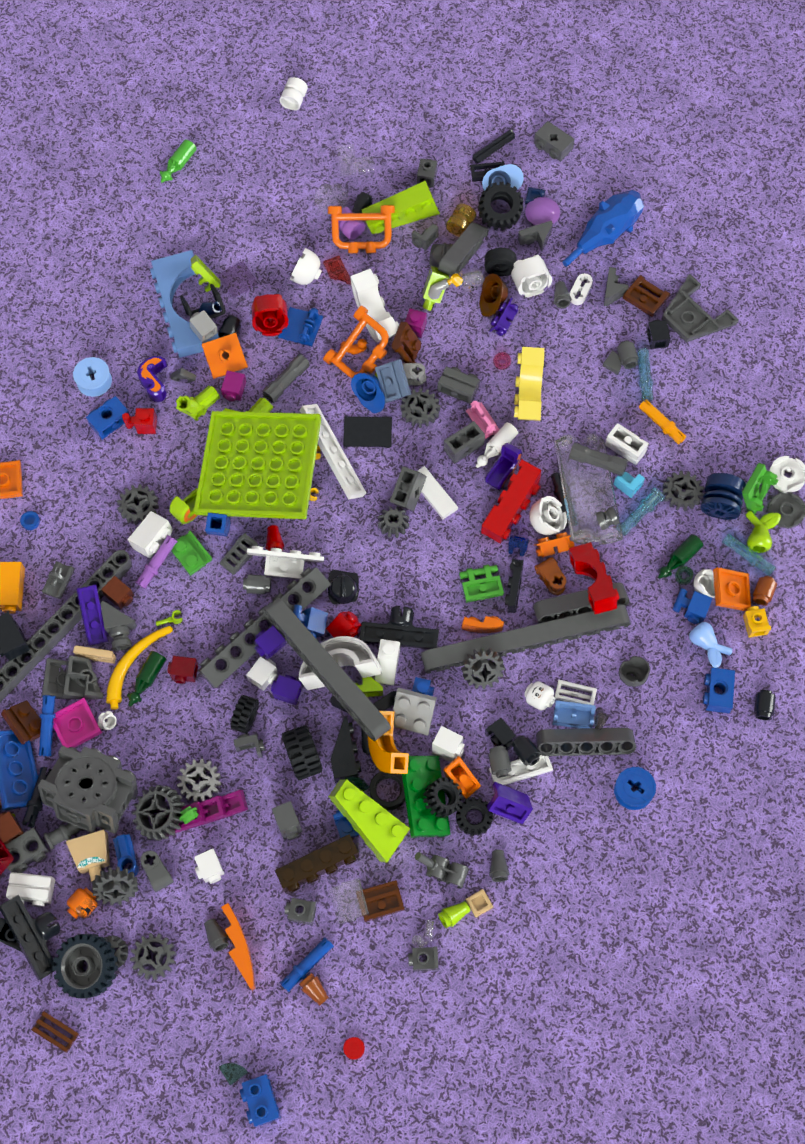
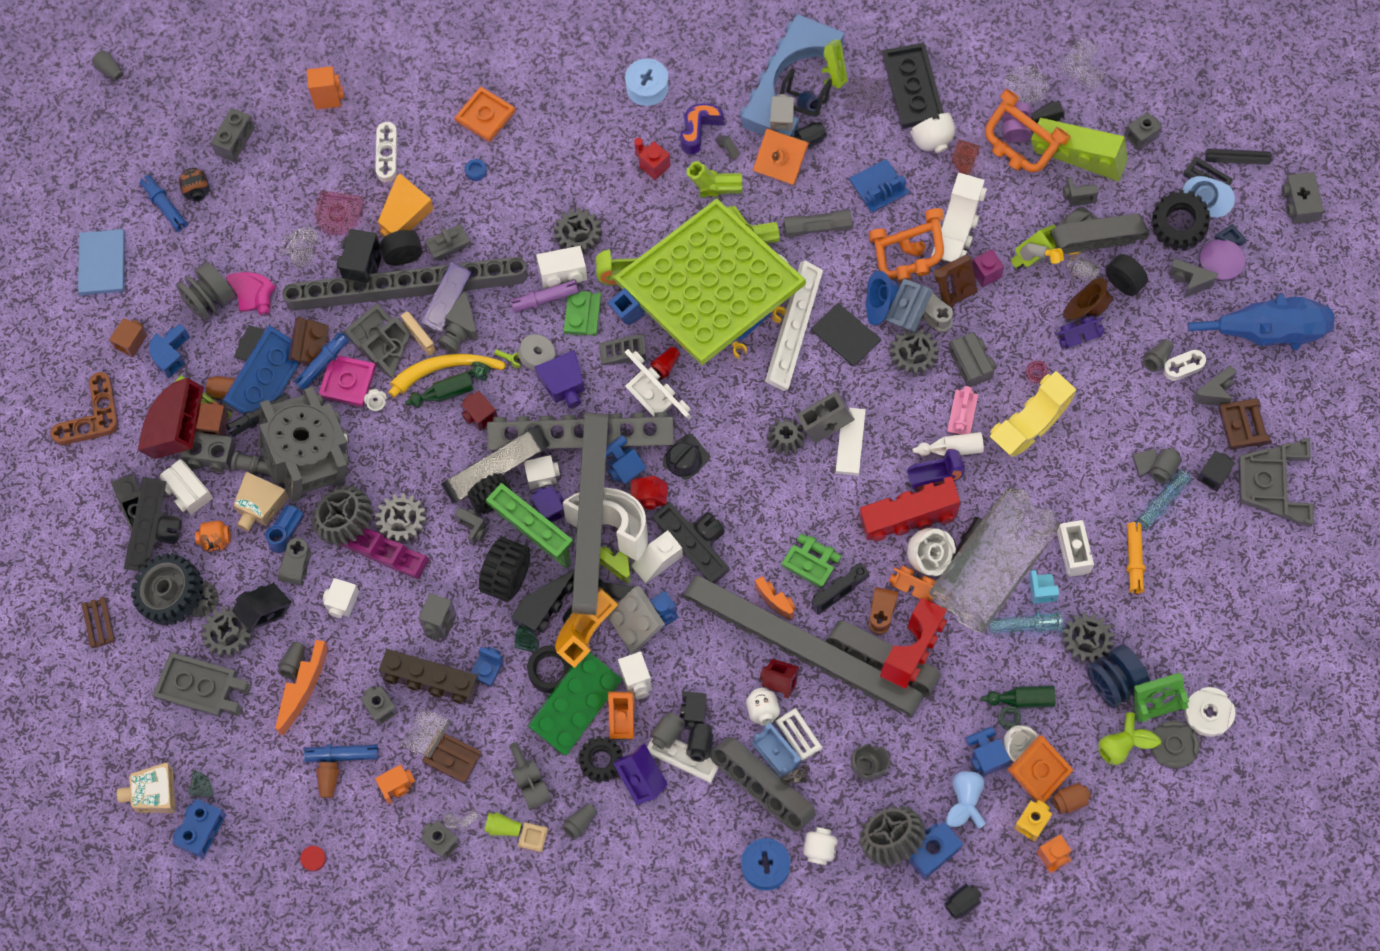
camera: 45 degrees right, 0 degrees up
(30, 609) = (401, 247): none -> black tyre
(105, 426) = (615, 123): blue brick -> none
(114, 886) = (249, 544): dark grey gear -> none
(118, 592) = (487, 296): copper brick -> none
(159, 644) = (479, 371): none -> clear green bush
(162, 918) = (261, 606): none -> black brick
(167, 1009) = (199, 685): none -> dark grey tile
(185, 608) = (535, 343): none -> light grey piece
(188, 814) = (362, 538): bright green plate -> none
(203, 1107) = (150, 790): none -> torso
(218, 603) = (562, 378): none -> dark purple torso
(230, 692) = (496, 463): none -> beam
(233, 386) = (762, 191): magenta brick -> none
(257, 584) = (612, 390): dark grey brick -> none
(263, 250) = (912, 84): none -> black plate
(269, 314) = (856, 150): red brick -> none
(269, 642) = (566, 448): dark purple brick -> none
(293, 709) = (531, 524): none -> bright green fence
(361, 950) = (395, 782): none -> orange brick
(374, 824) = (505, 681): lime wedge -> none
(451, 792) = (599, 722): black tyre -> none
(461, 219) = (1133, 202): clear yellow wheel -> none
(464, 442) = (921, 417): dark grey brick -> none
(481, 667) = (744, 640): dark grey gear -> none
(518, 542) = (882, 552): clear blue tile -> none
(531, 276) = (1143, 312): white brick -> none
(532, 668) = (780, 677): none -> dark red brick
(586, 455) = (1040, 554): dark grey axle -> none
(607, 518) = (983, 600): dark grey wheel -> none
(654, 748) = (820, 846): none -> white head
(687, 714) = (892, 835): none -> dark grey gear
(767, 567) = (1087, 727): clear light blue pin -> none
(787, 630) = (1054, 853): none -> orange brick

